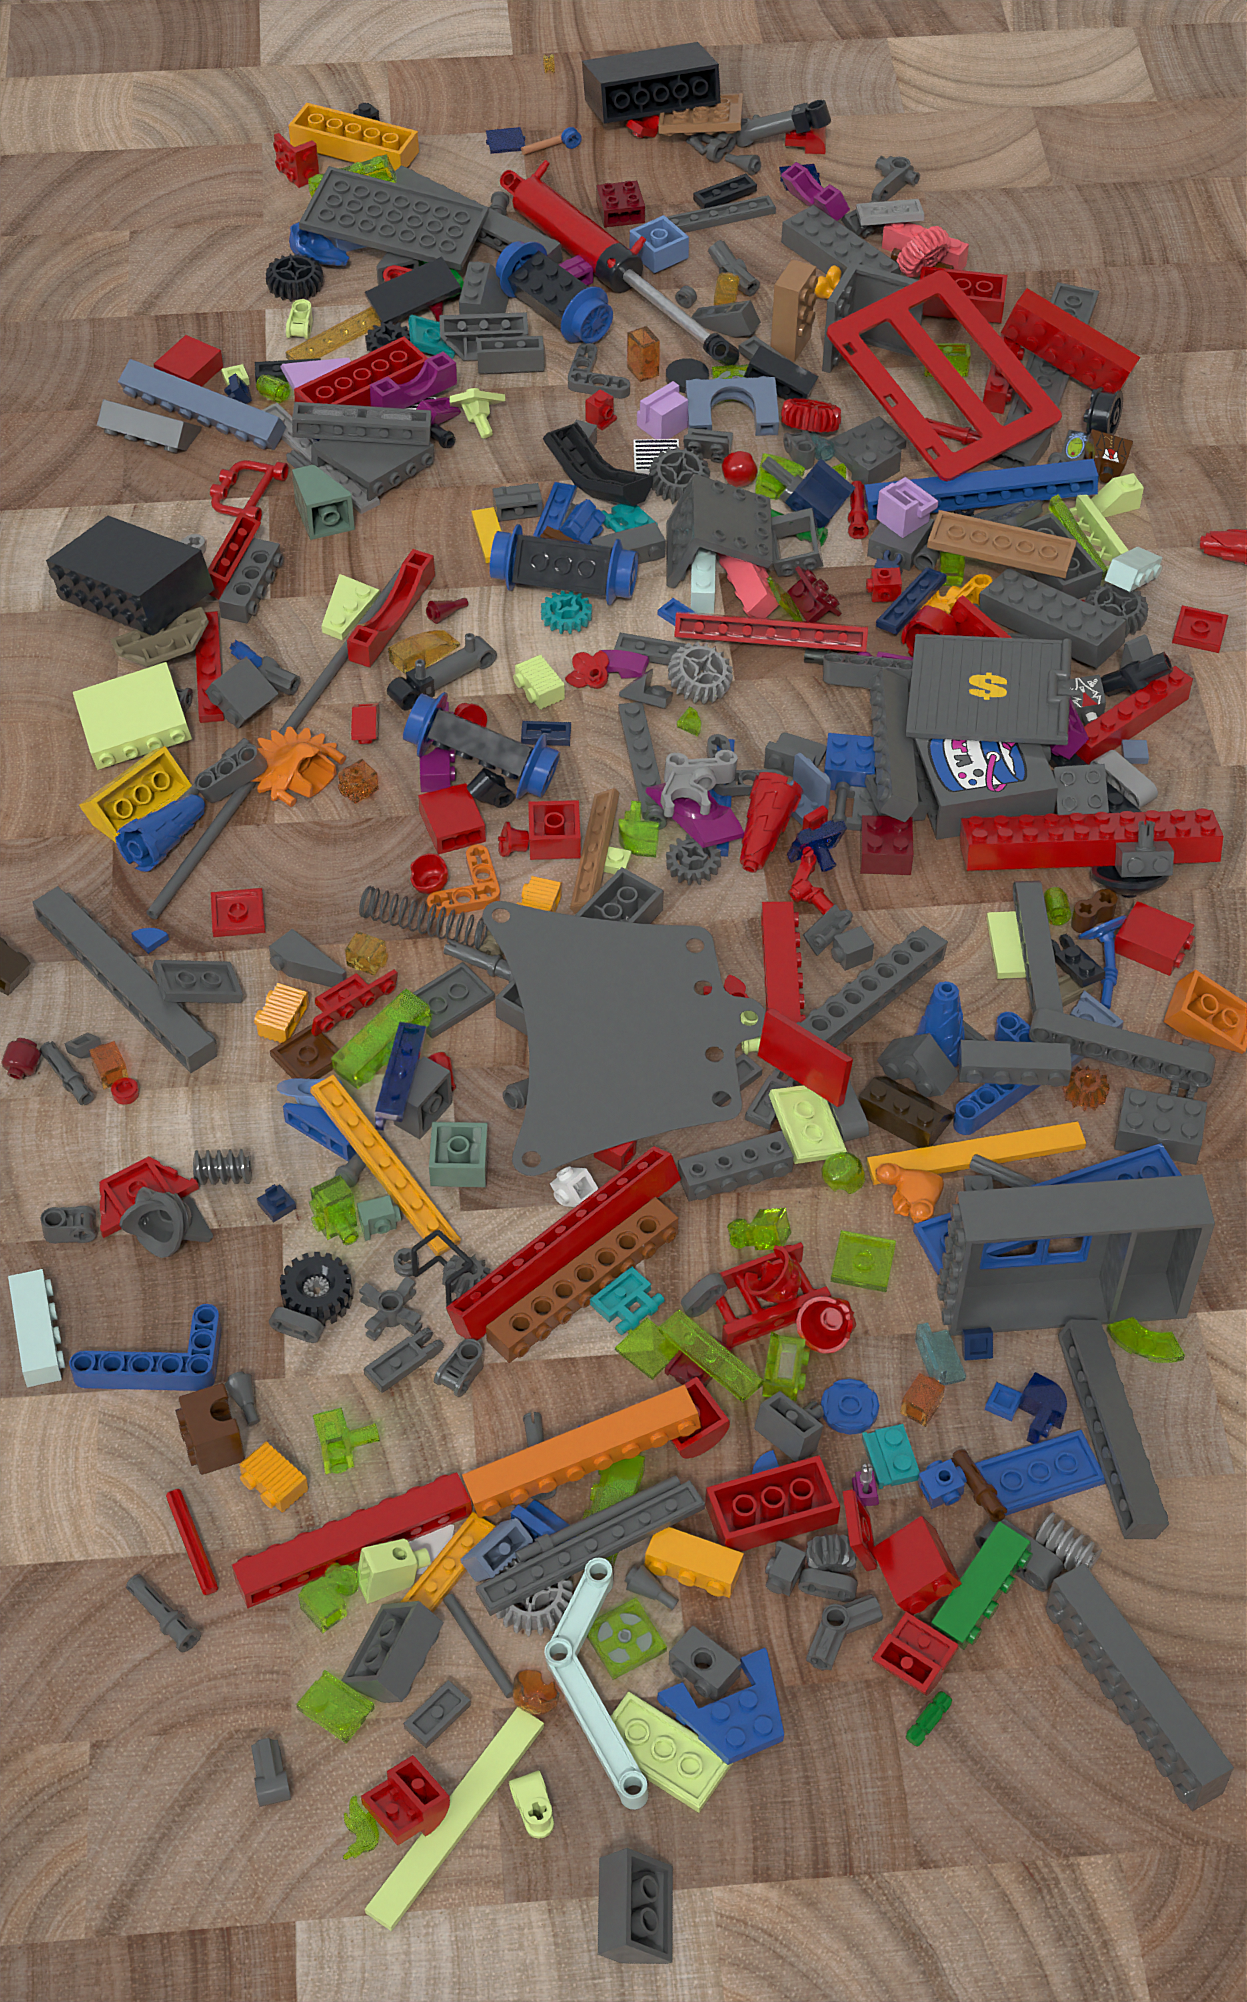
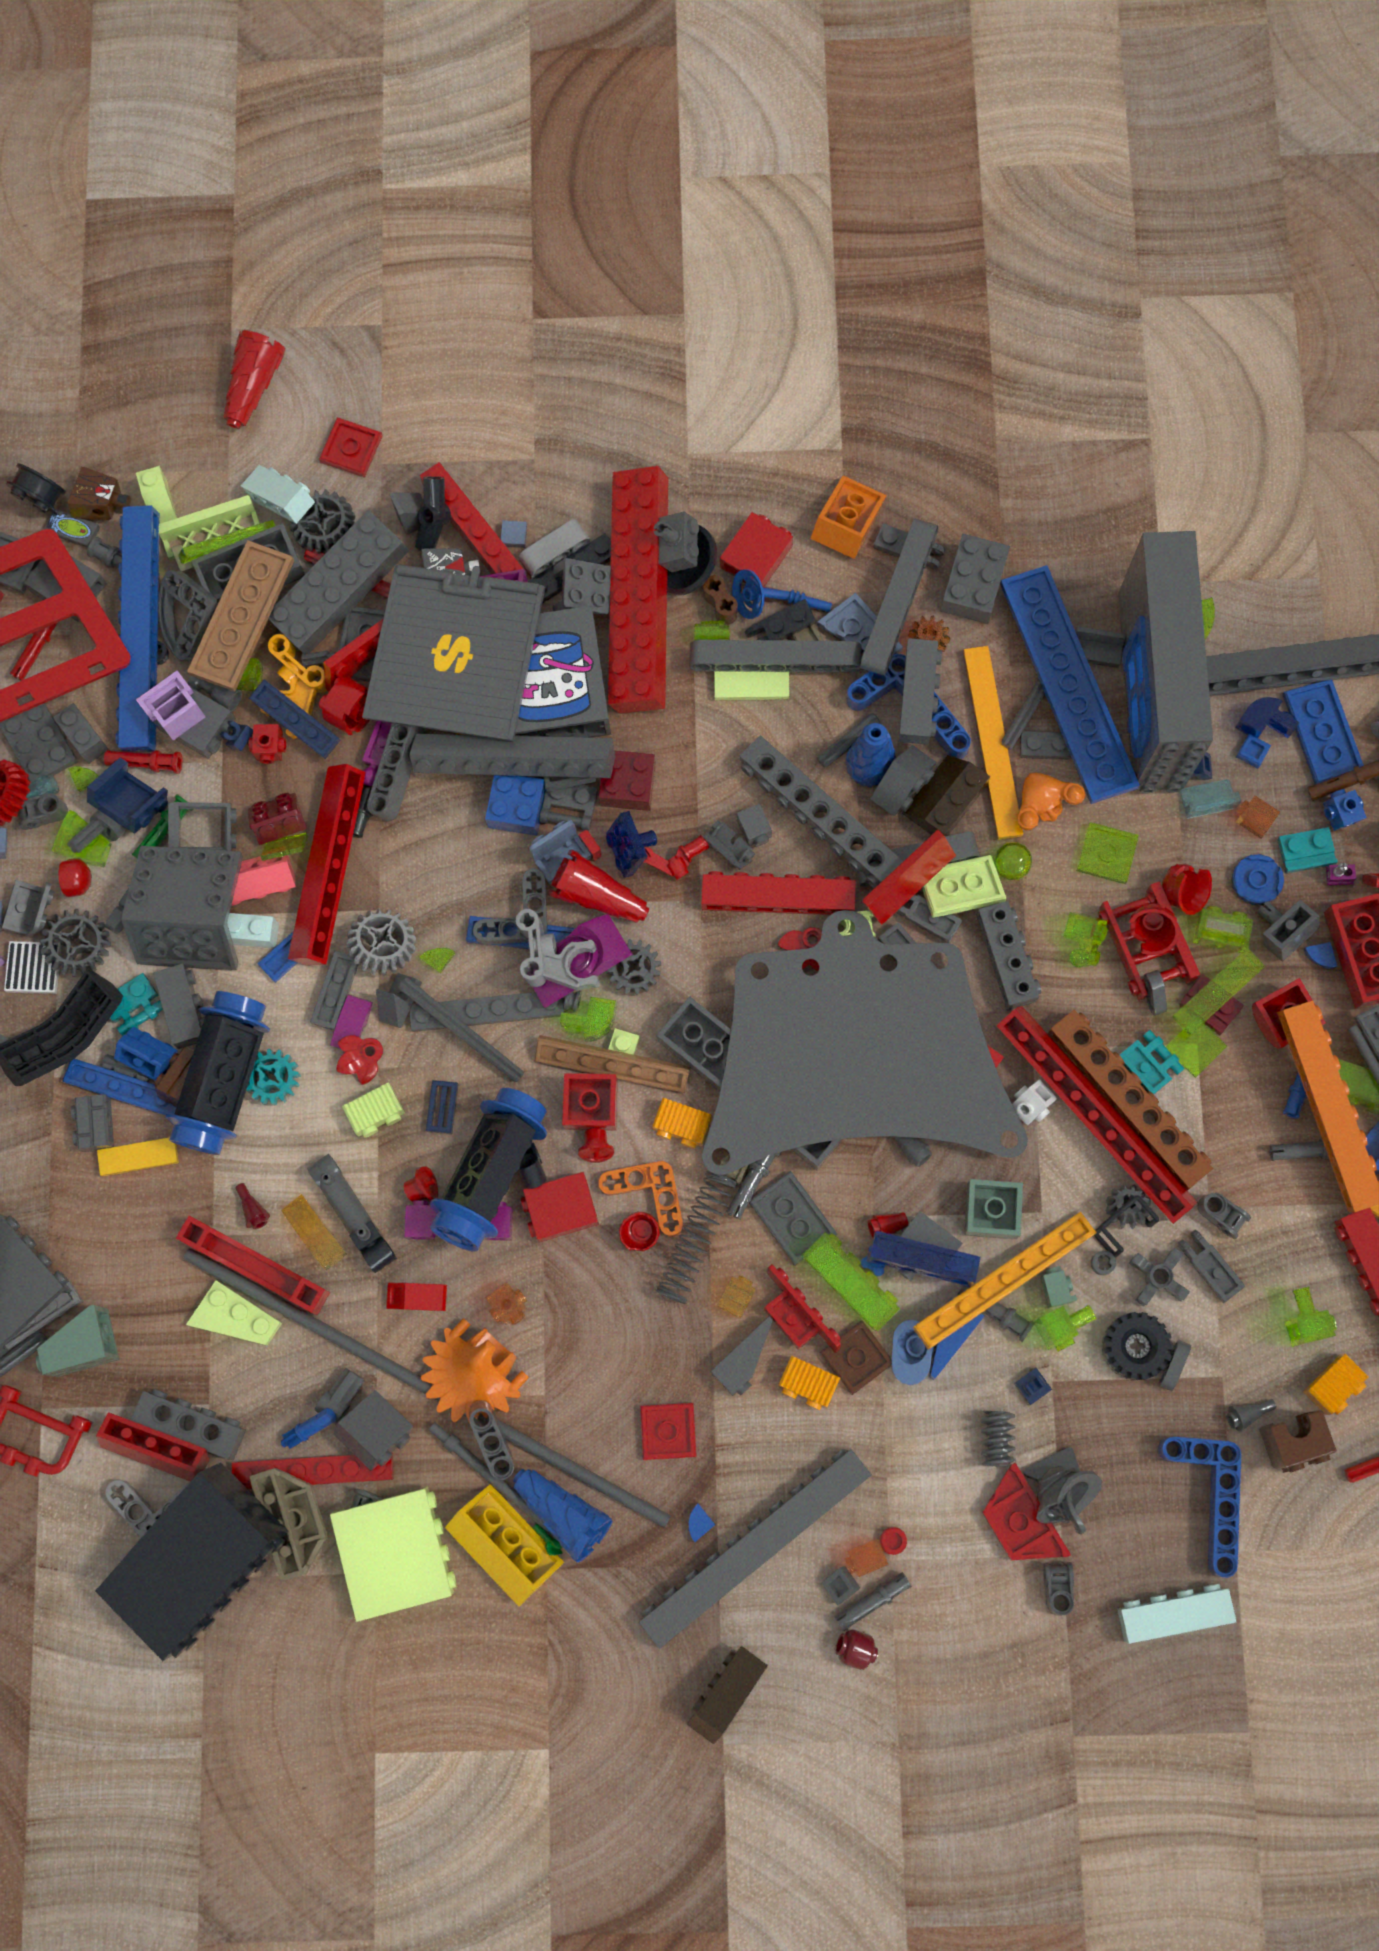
camera: 80 degrees left, 25 degrees up
(197, 981) = (773, 1468): dark grey plate -> none
(618, 734) = (460, 1029): none -> dark grey axle
(782, 753) = (498, 856): dark grey bracket -> none

